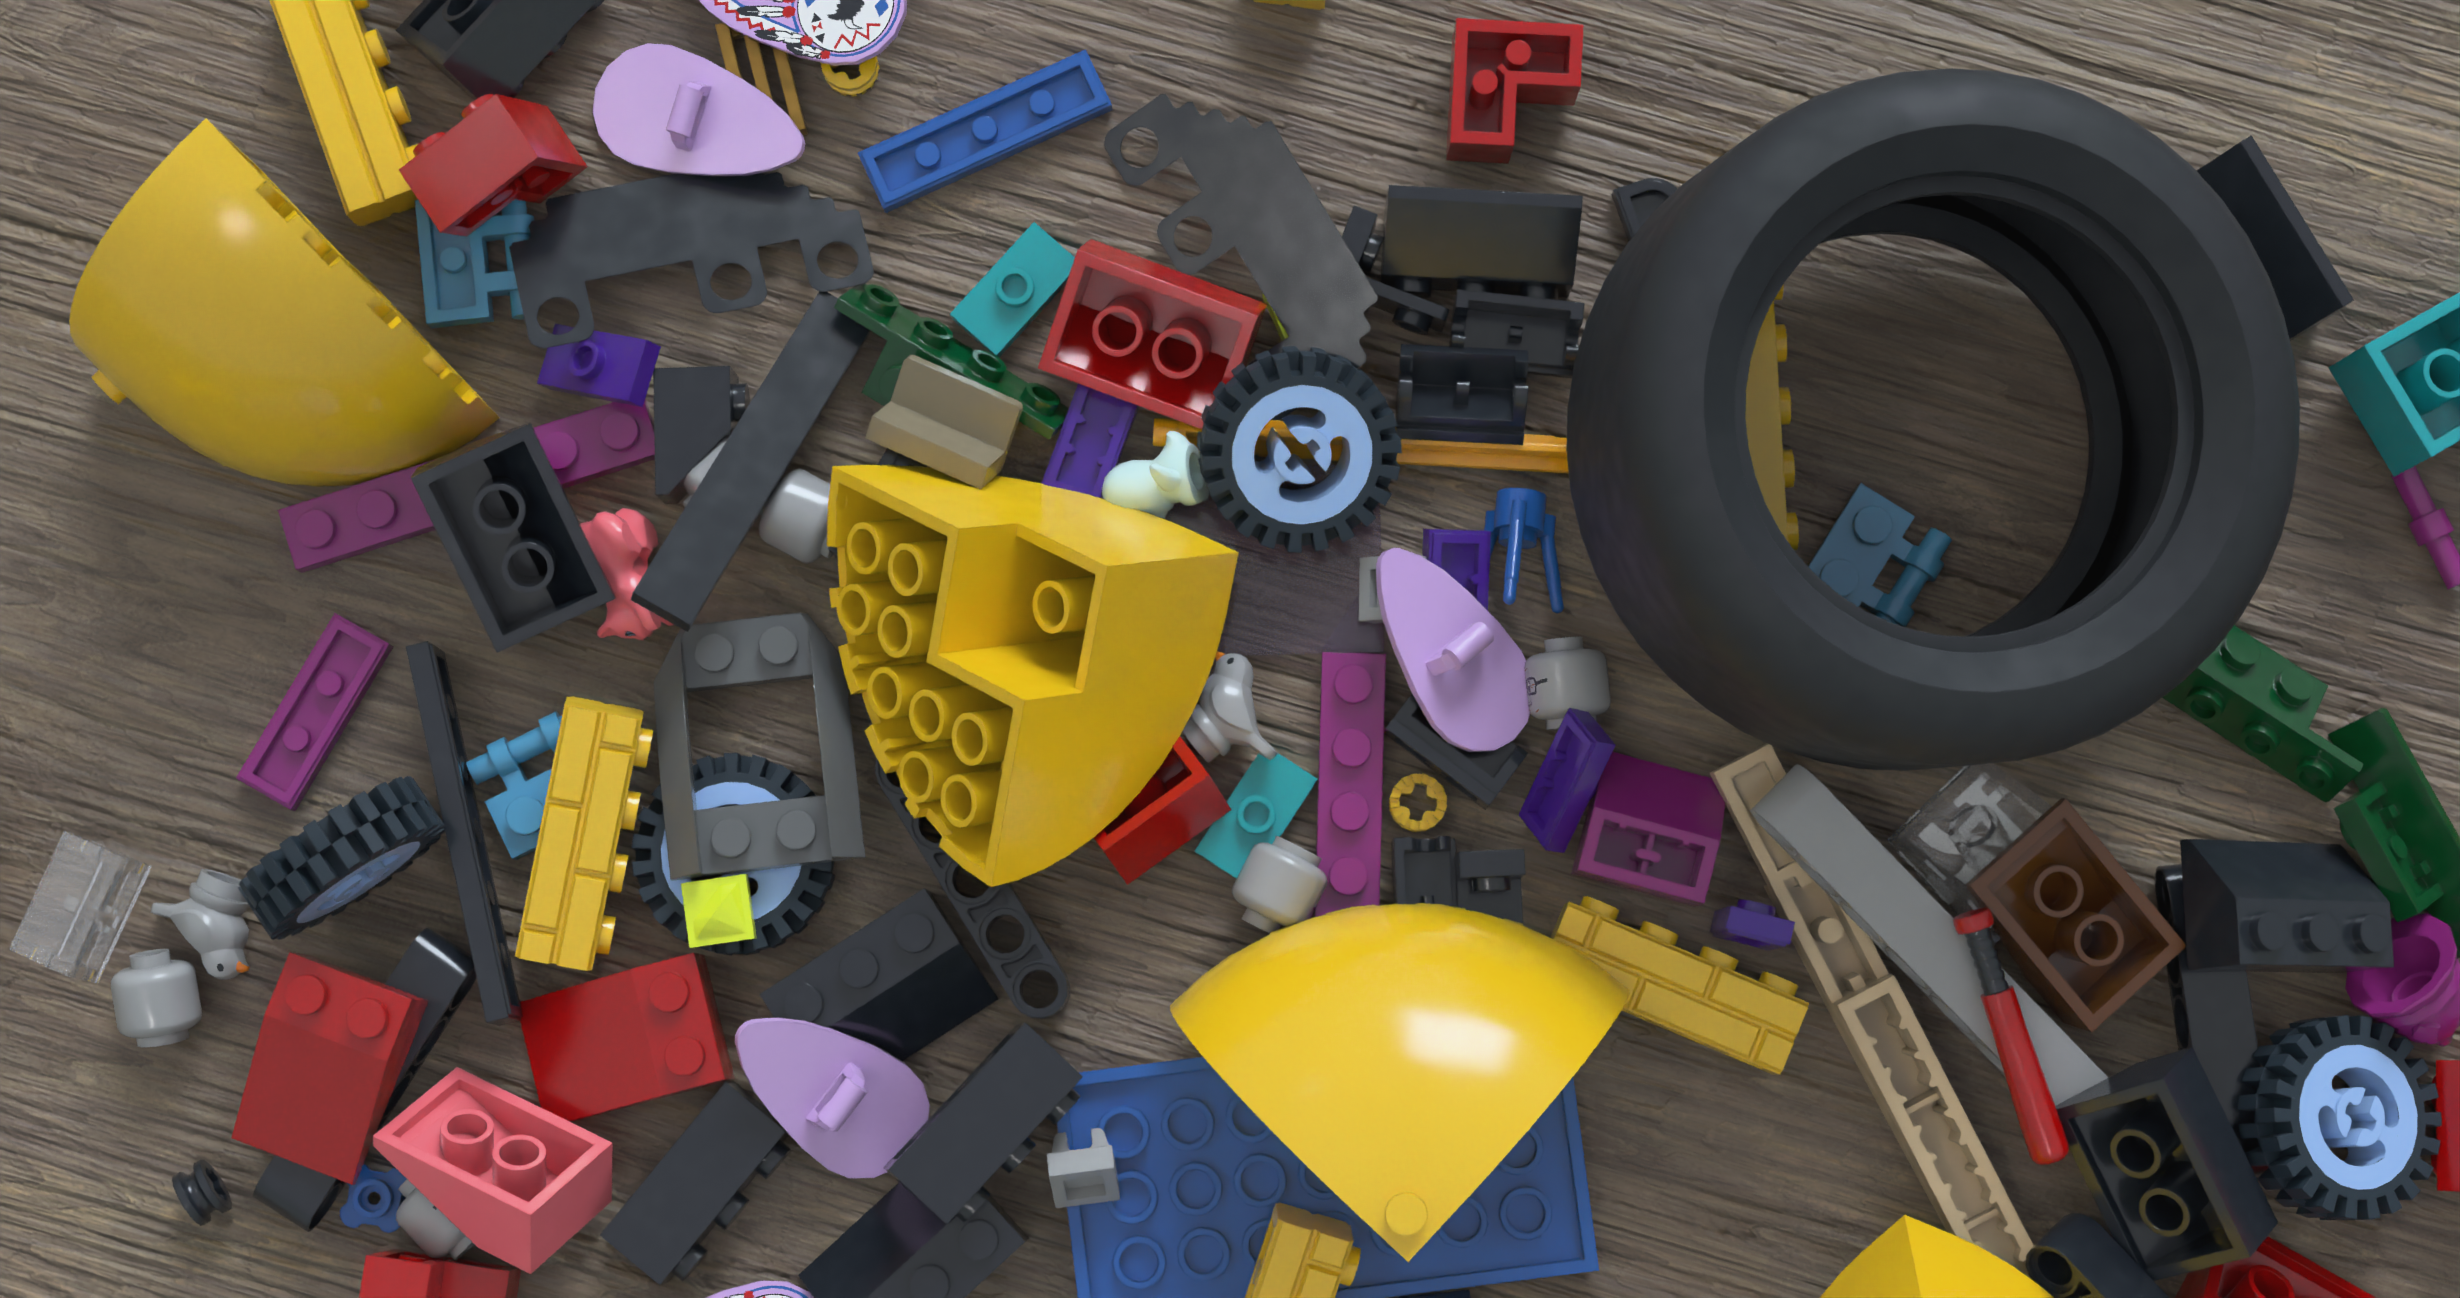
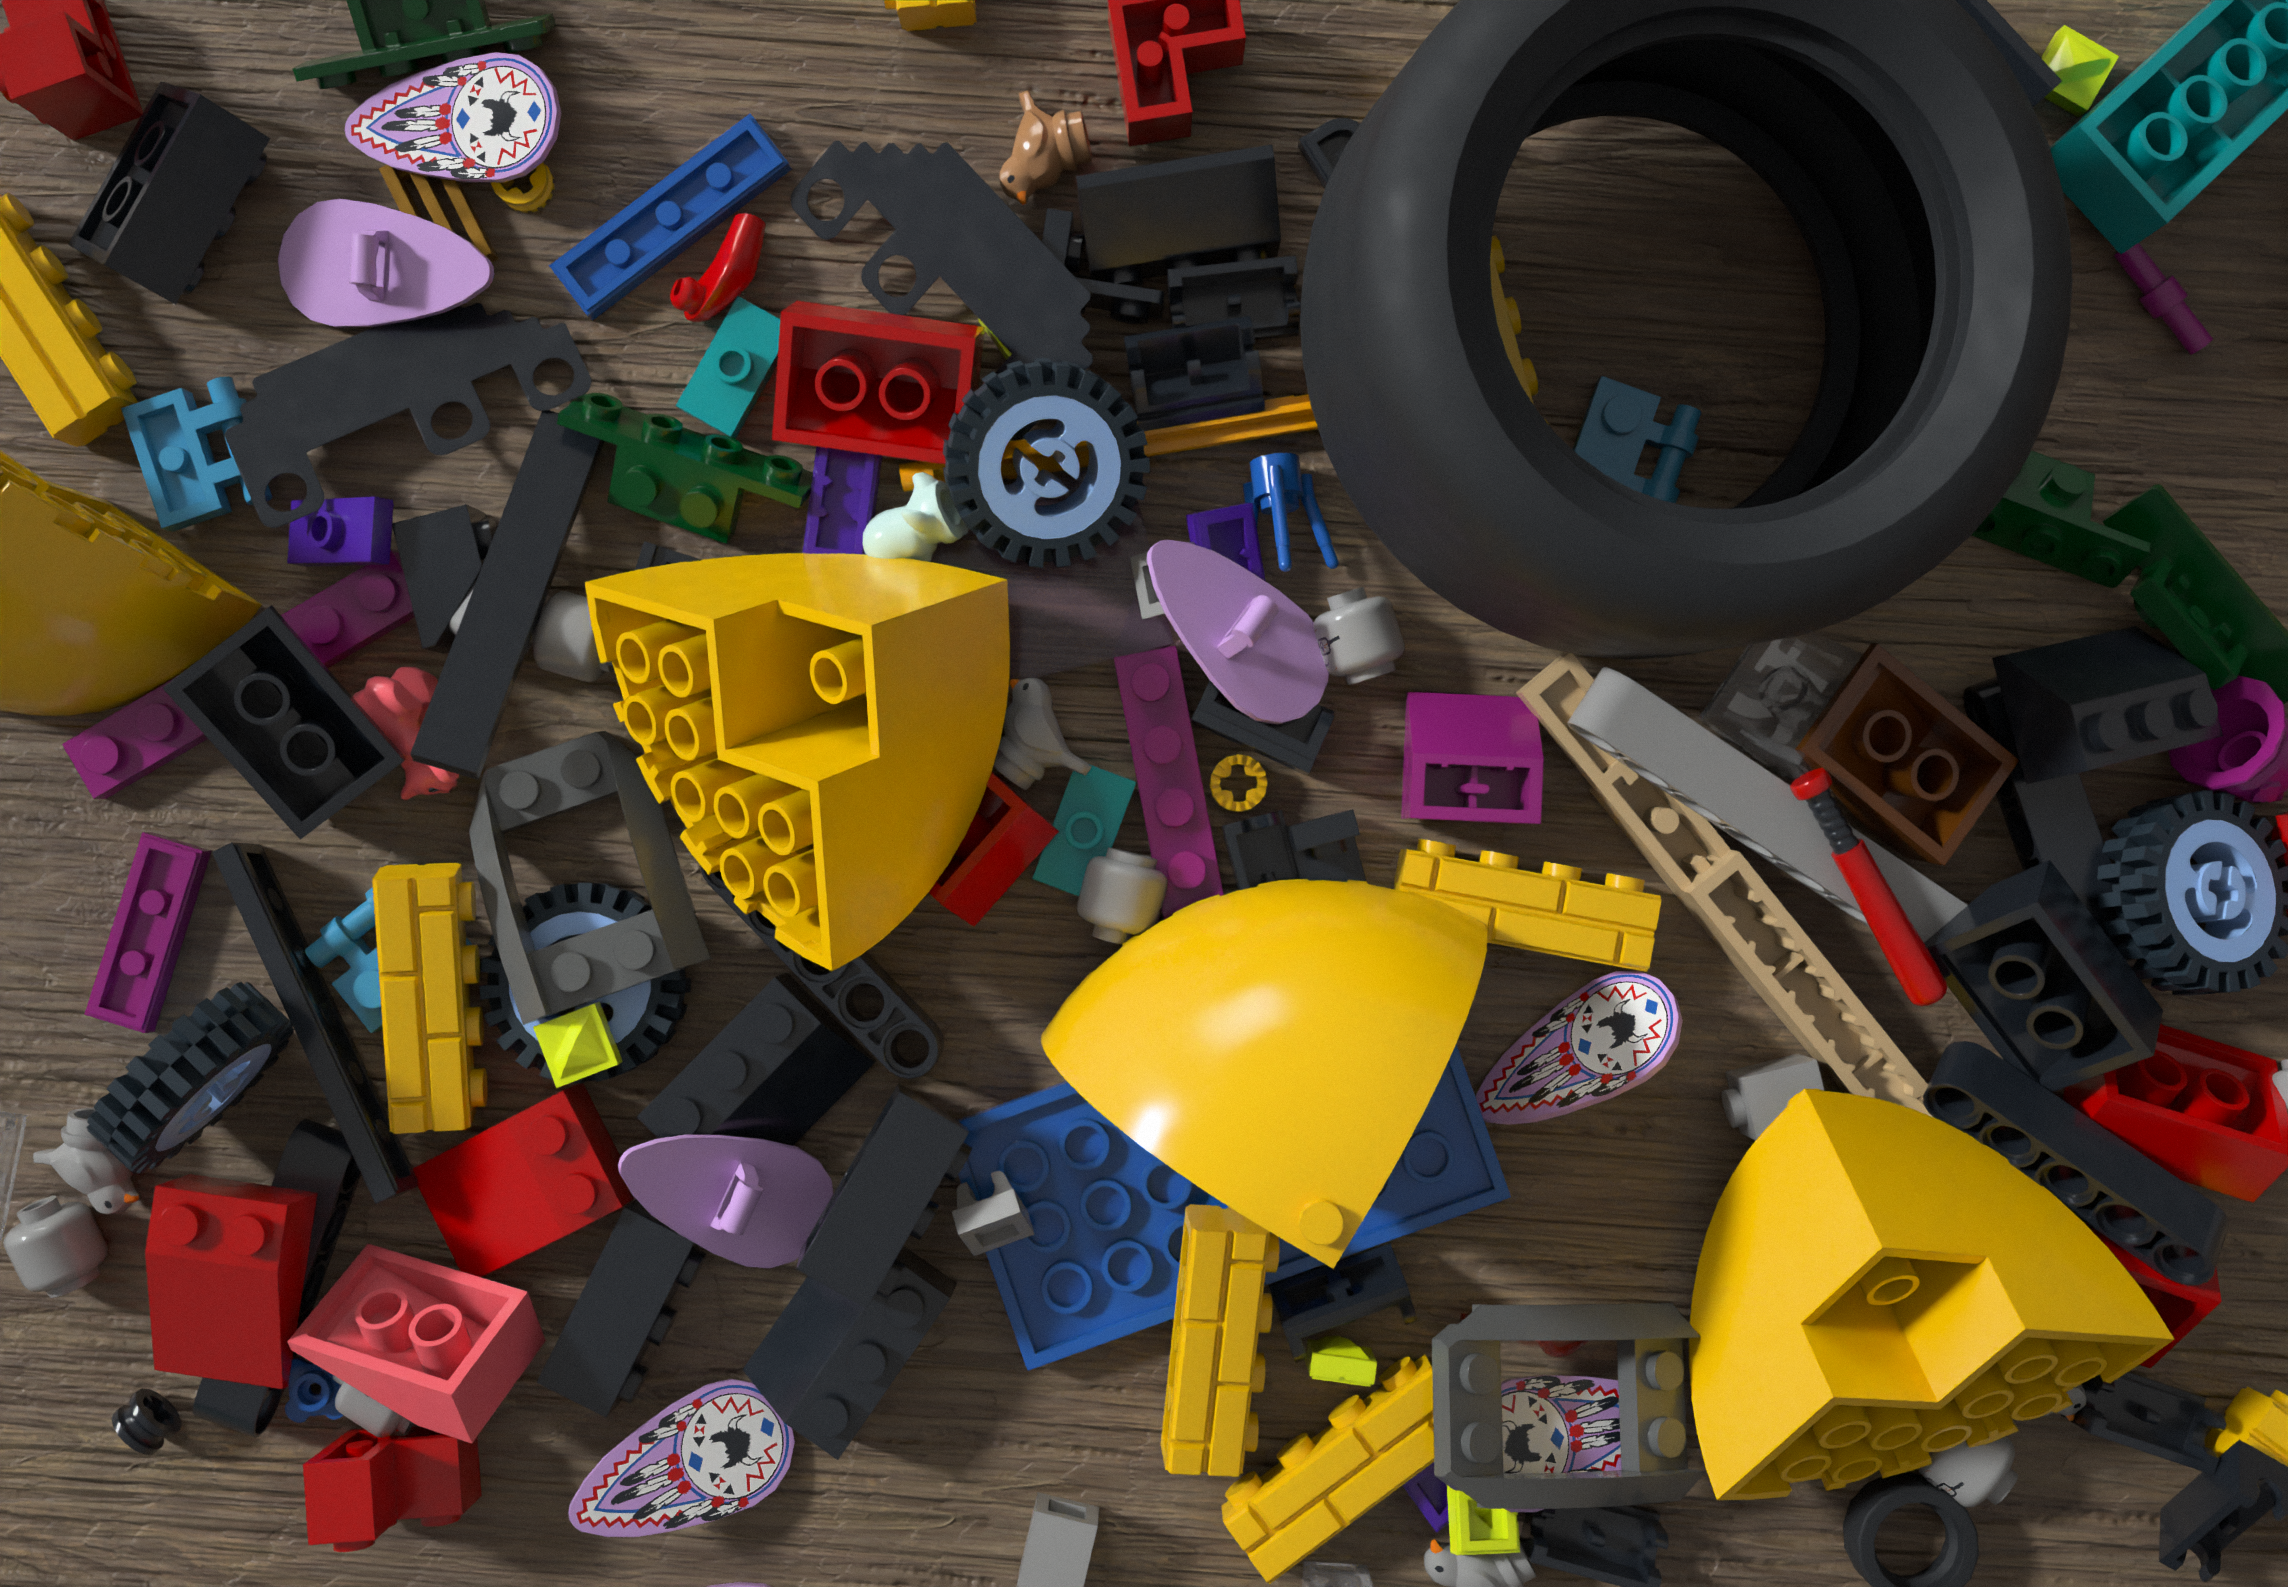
camera: 15 degrees left, 5 degrees up
(488, 160) = (178, 350): red brick -> none
(947, 422) = (693, 513): dark tan panel -> none
(1028, 199) = (726, 276): none -> red arm
(1362, 147) = (1043, 150): none -> medium nougat animal
(1566, 780) = (1379, 731): dark purple plate -> none
(1701, 1139) = (1585, 1050): none -> shield
(1752, 925) = (1591, 832): dark purple plate -> none
(1869, 1217) = (1763, 1090): none -> light grey brick
(2386, 287) = (2080, 66): none -> neon yellow tile

